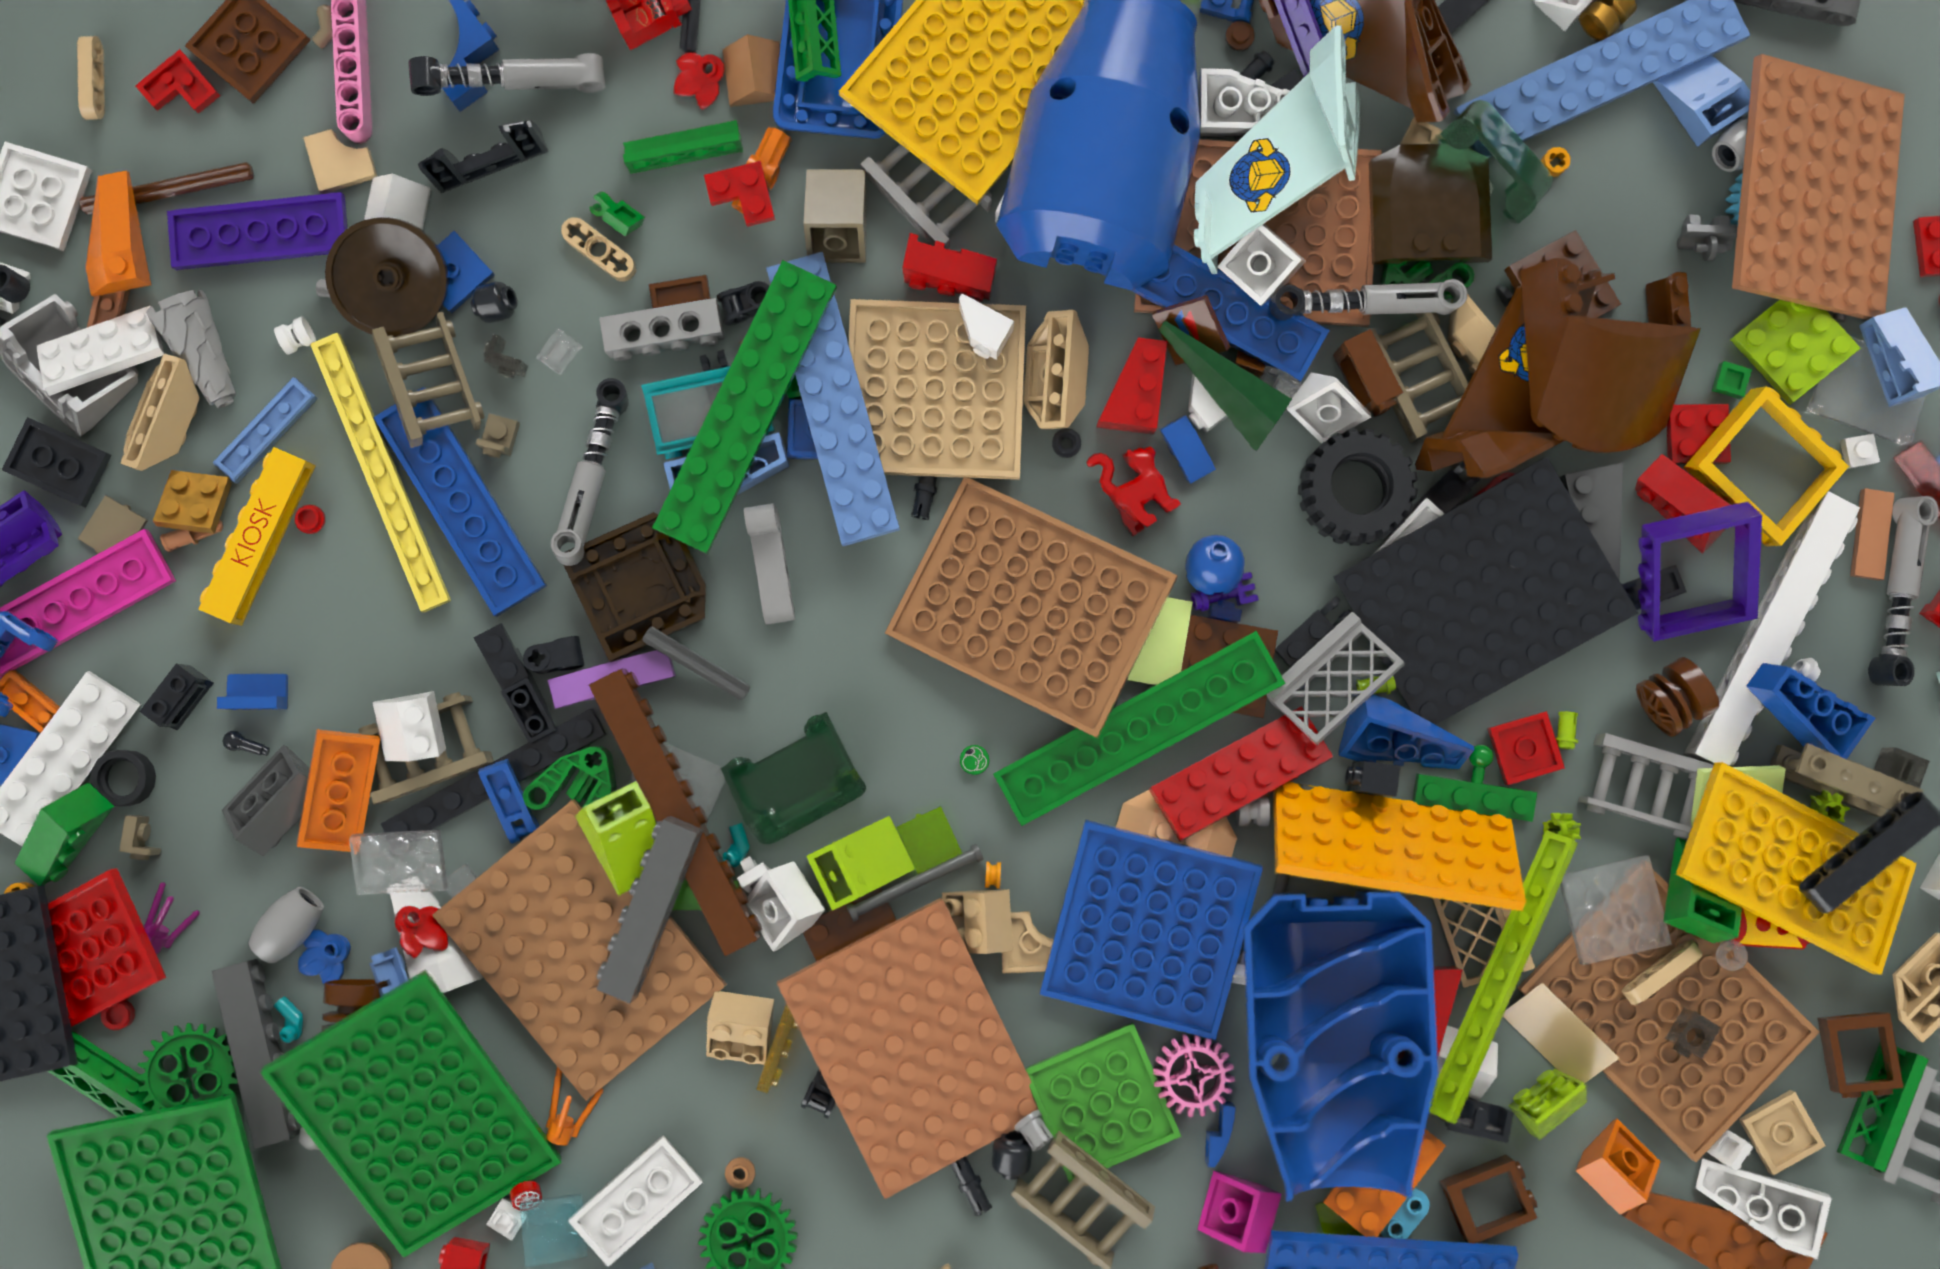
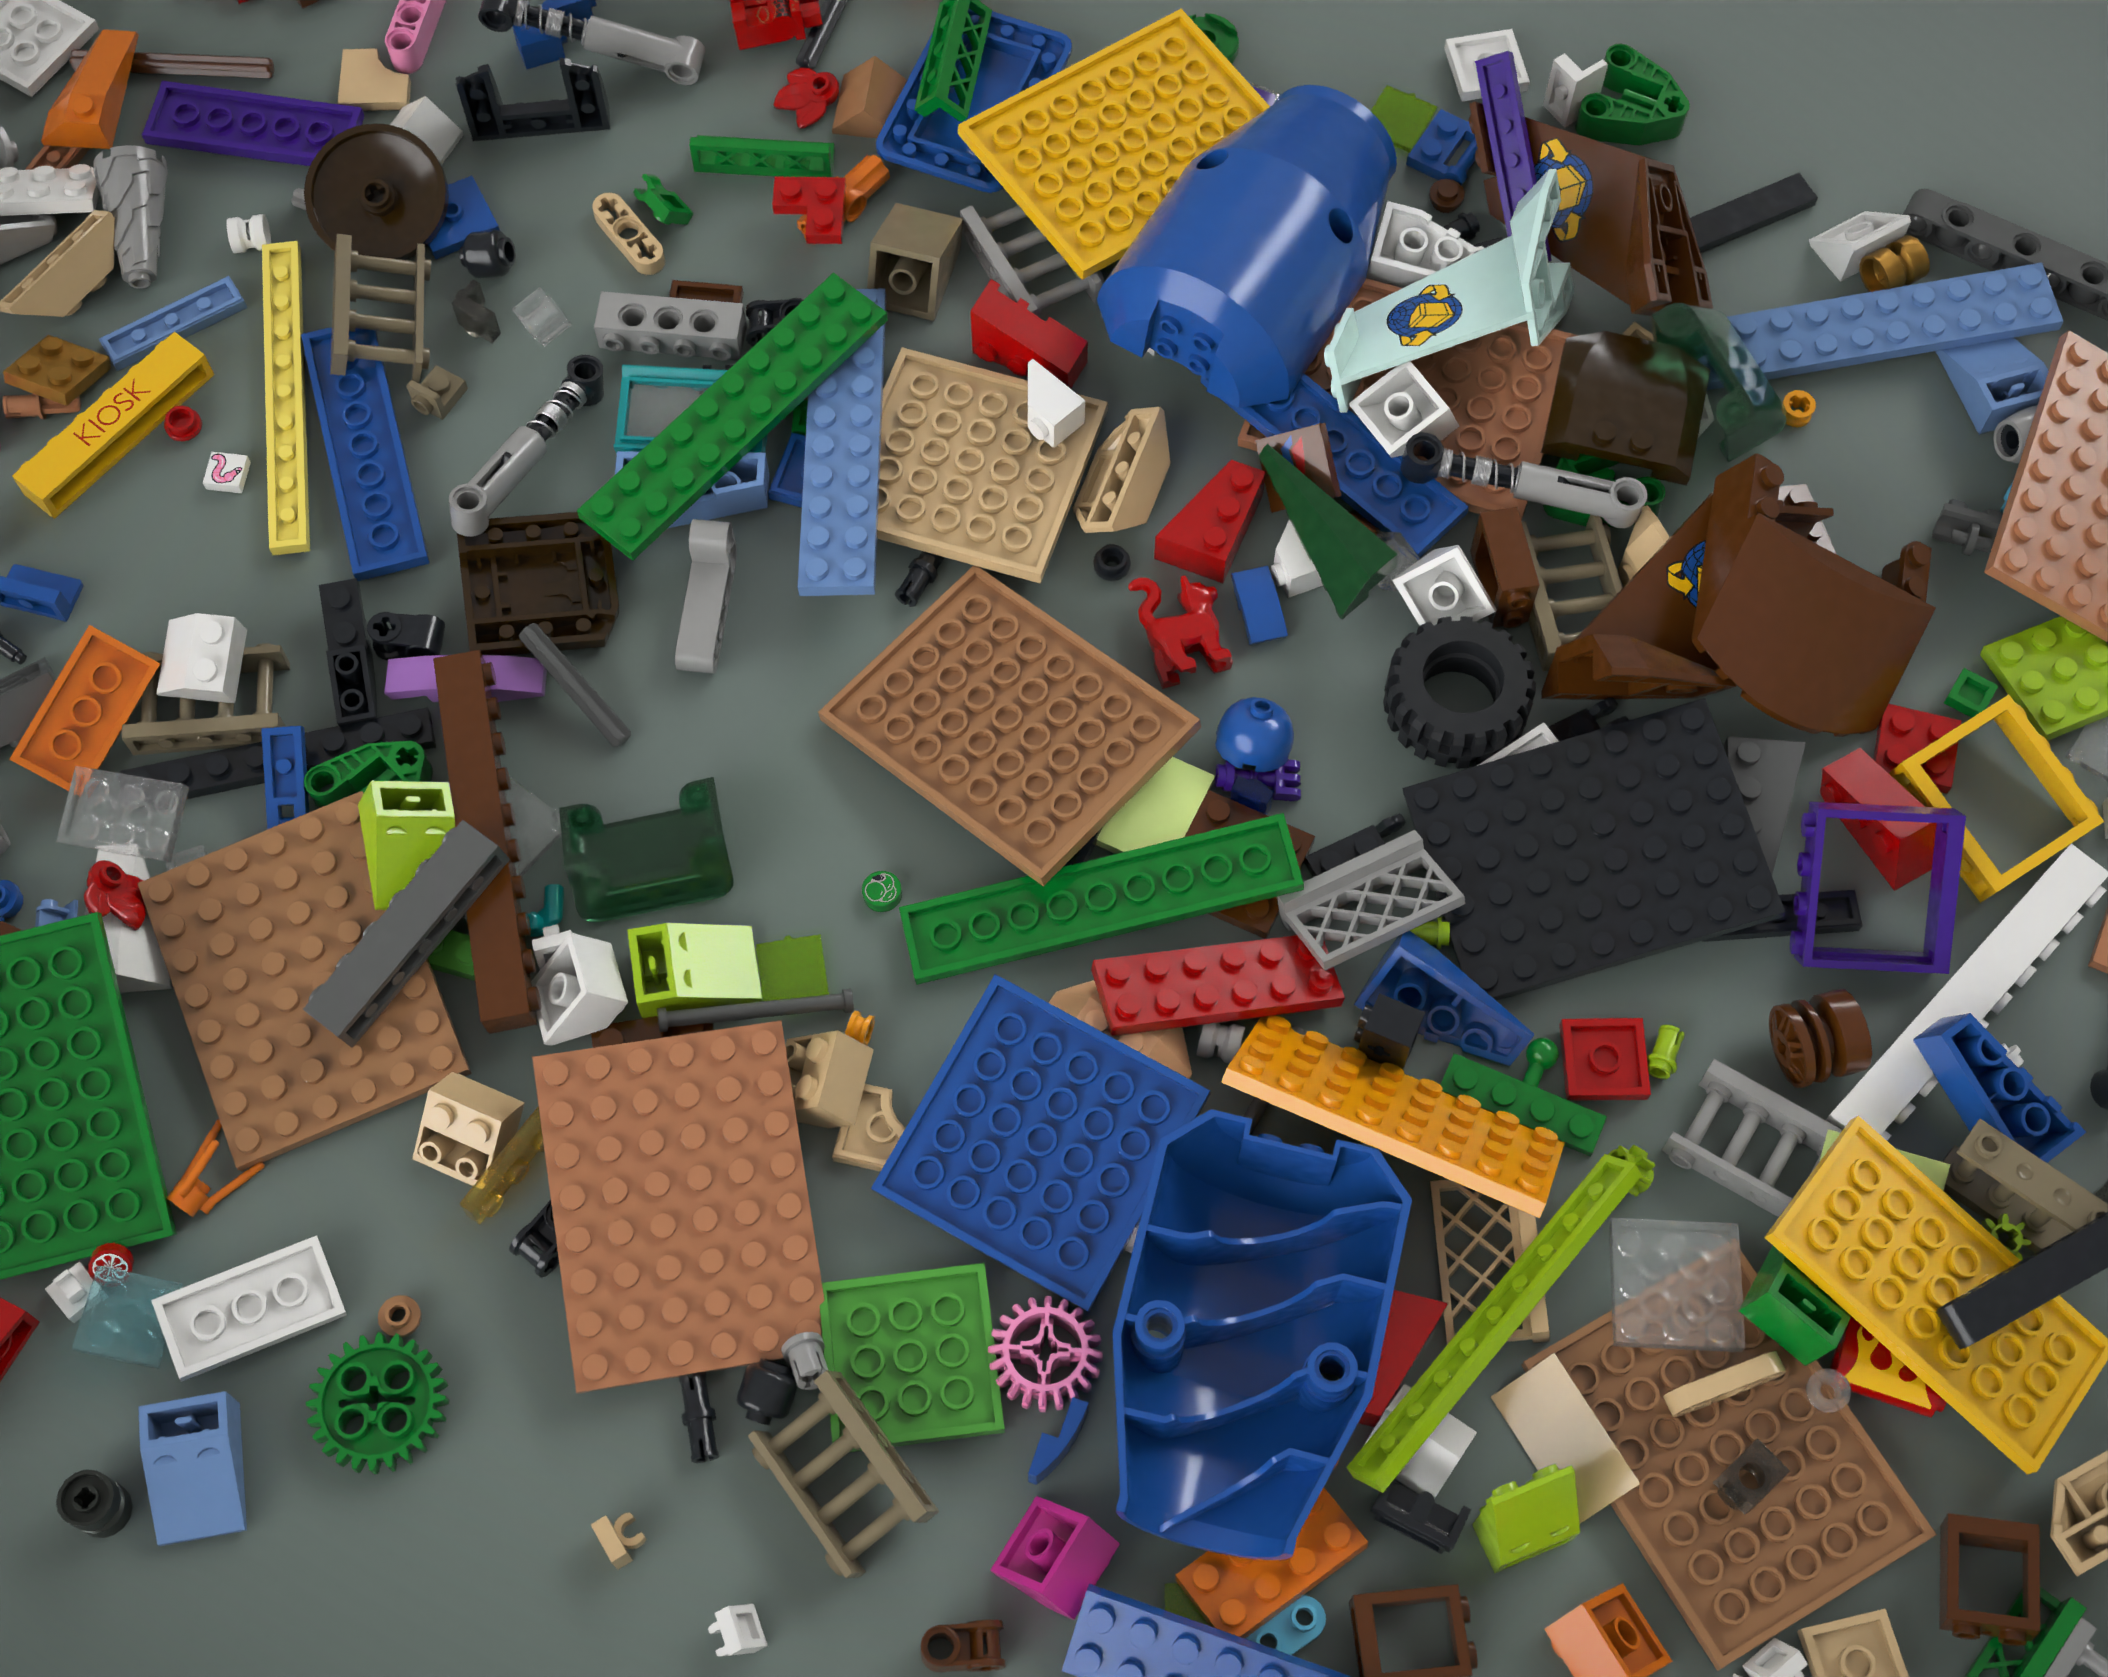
camera: 15 degrees right, 20 degrees down
(360, 551) = (226, 472): none -> white tile

